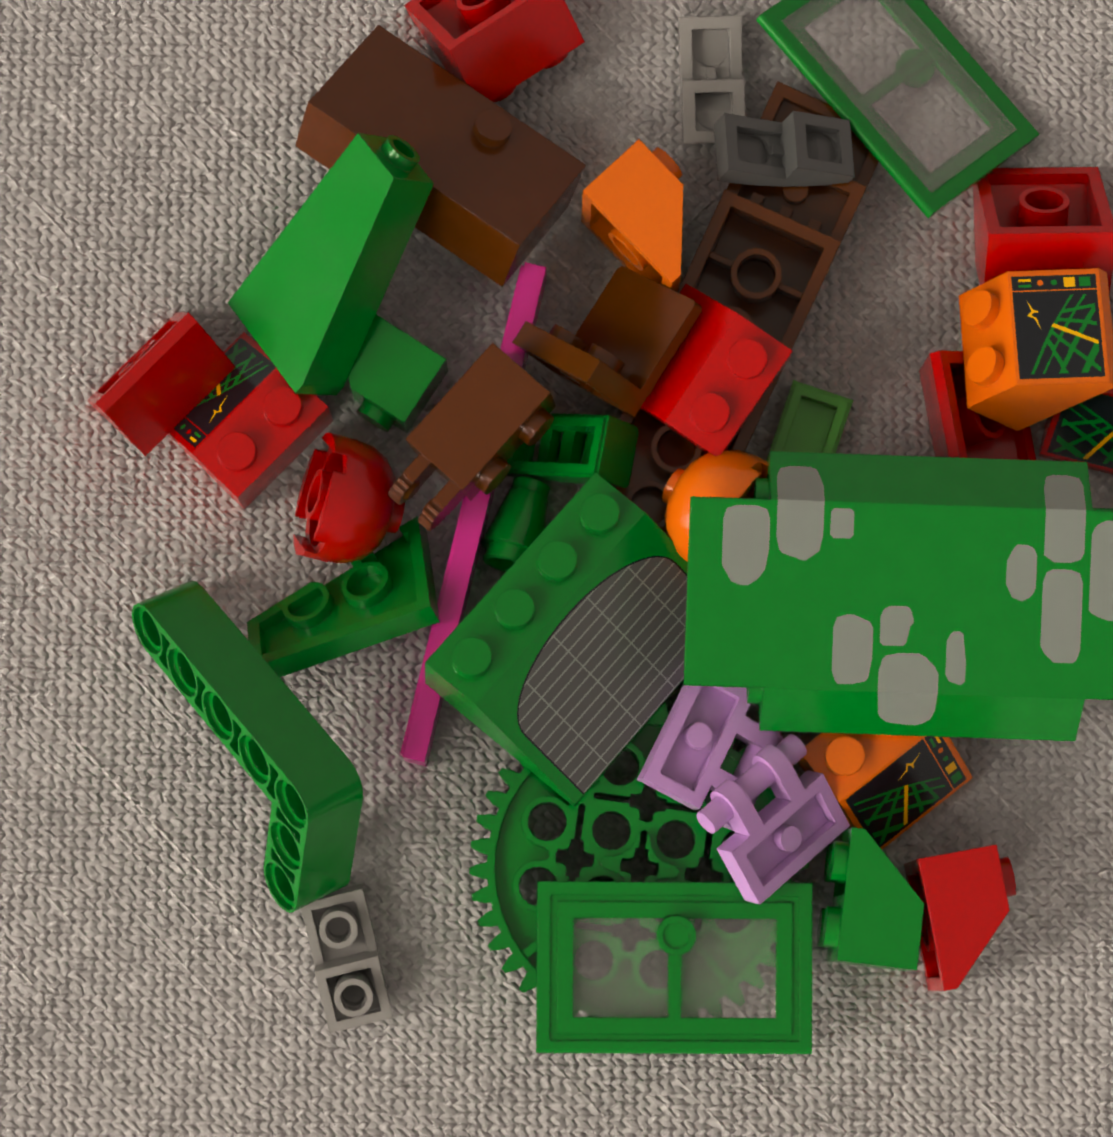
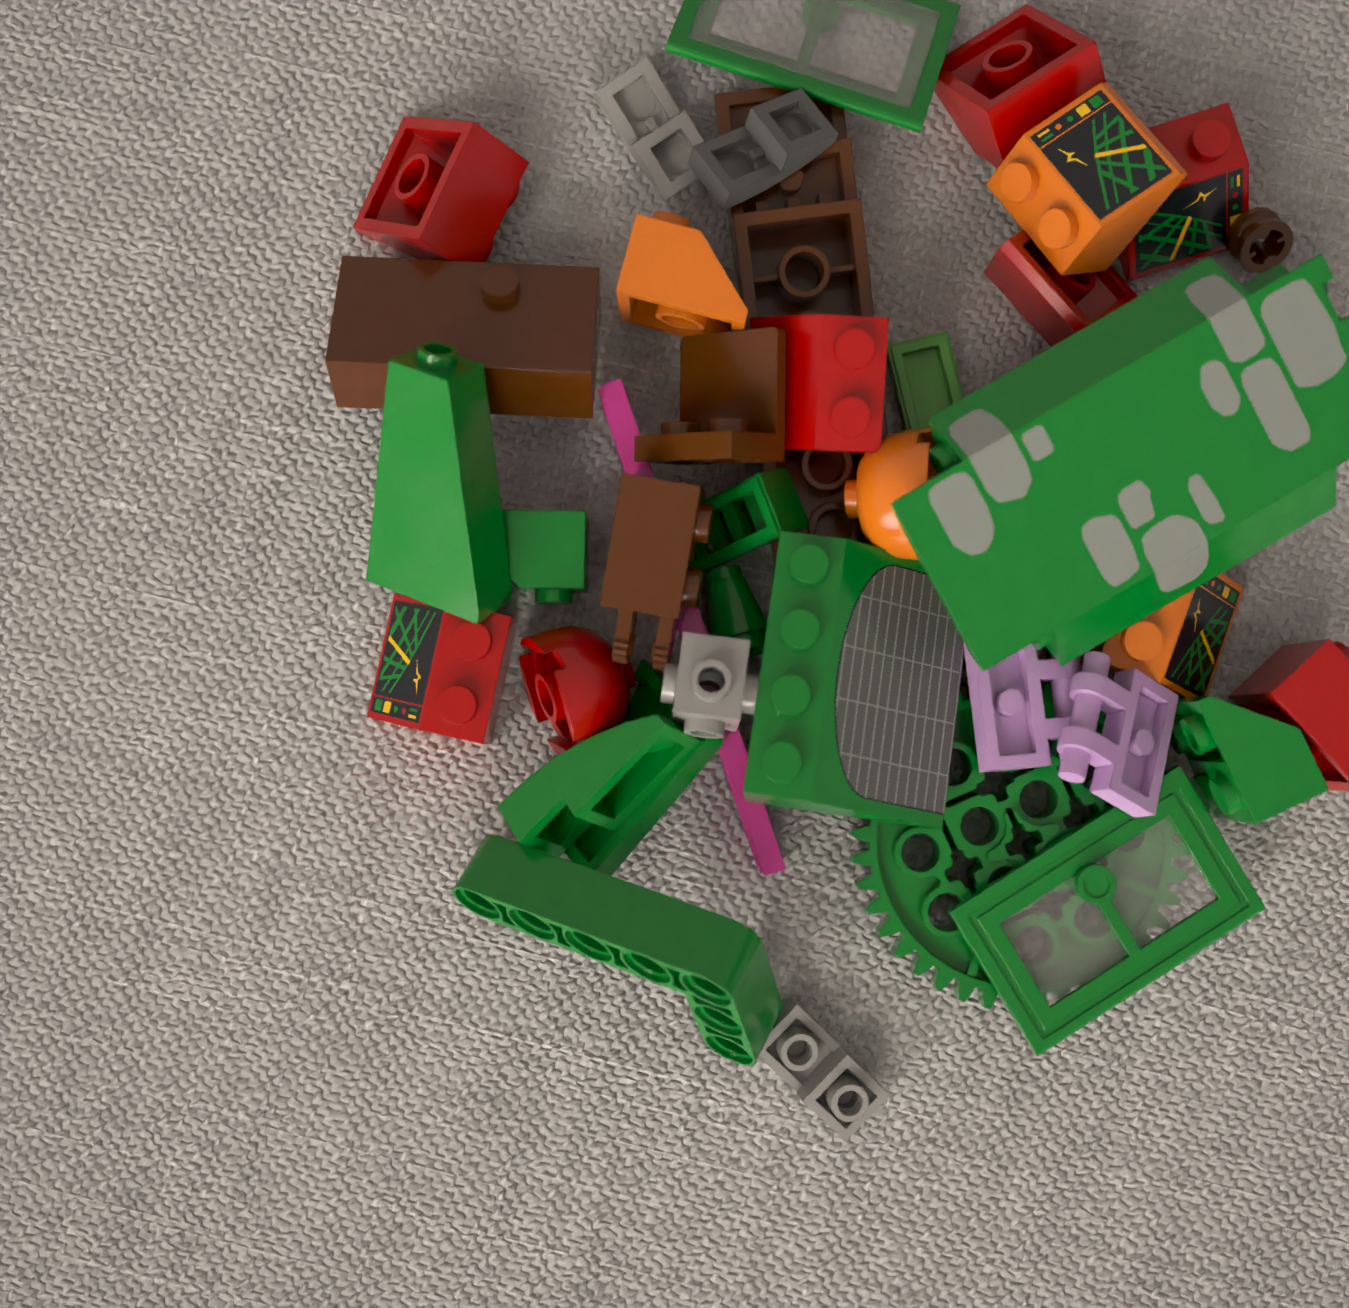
camera: 30 degrees left, 5 degrees up
(162, 382) = (352, 683): red slope -> none
(311, 589) = (595, 782): none -> green slope
(454, 561) = (716, 663): none -> light grey brick

